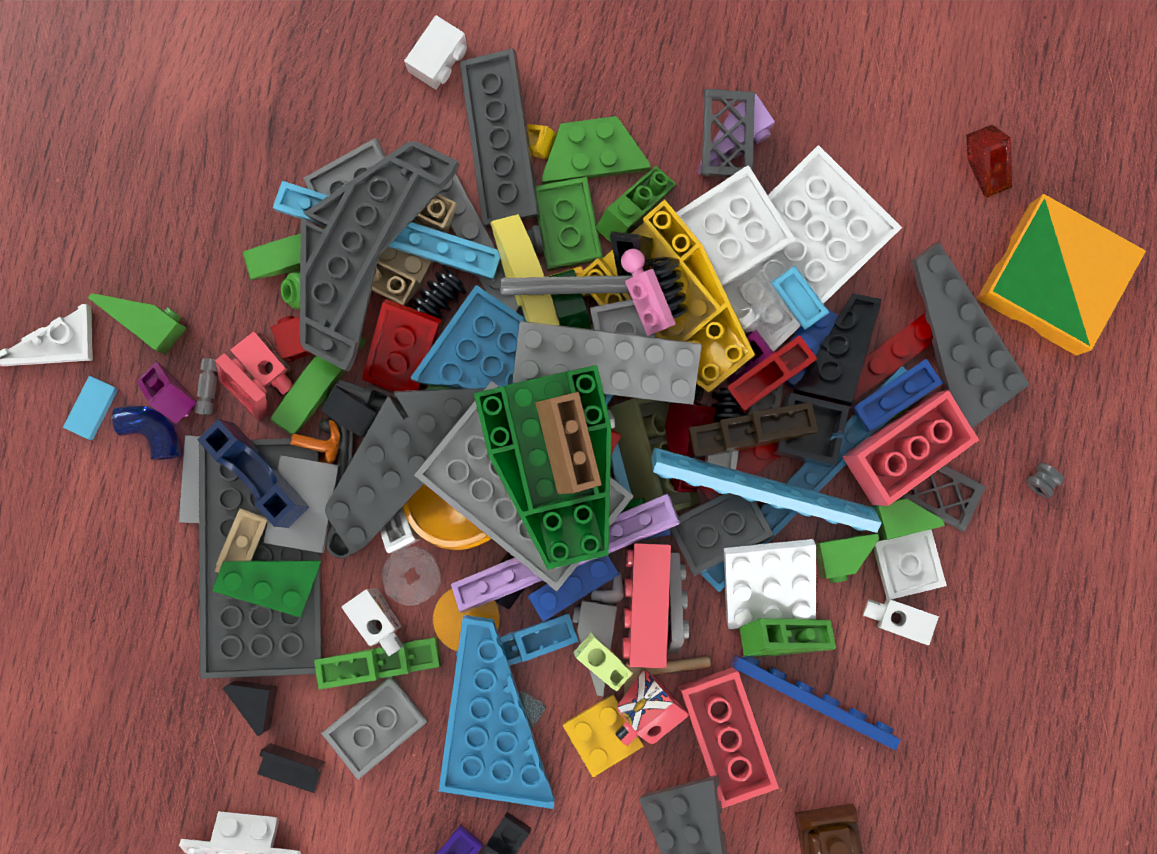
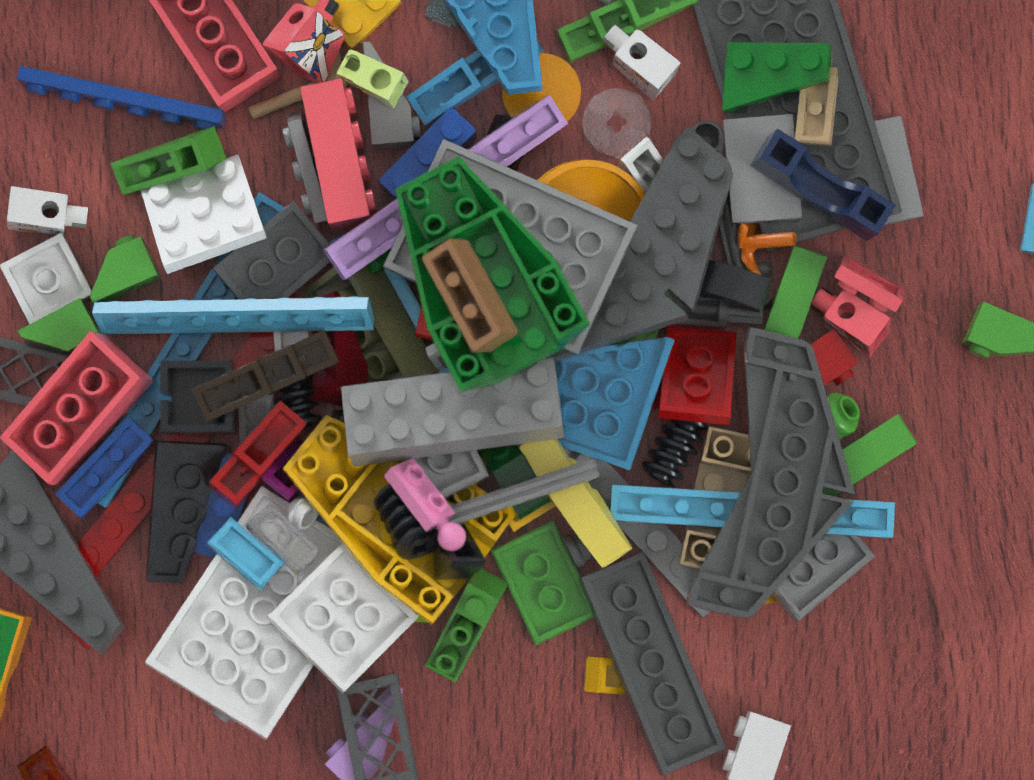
camera: 165 degrees right, 0 degrees up
(152, 425) = (964, 216): clear blue cylinder -> none
(166, 393) = (960, 258): magenta slope -> none
(206, 387) = (915, 279): light grey axle -> none
(593, 150) = (536, 680): bright green wing -> none
(610, 596) = (382, 157): white animal -> none

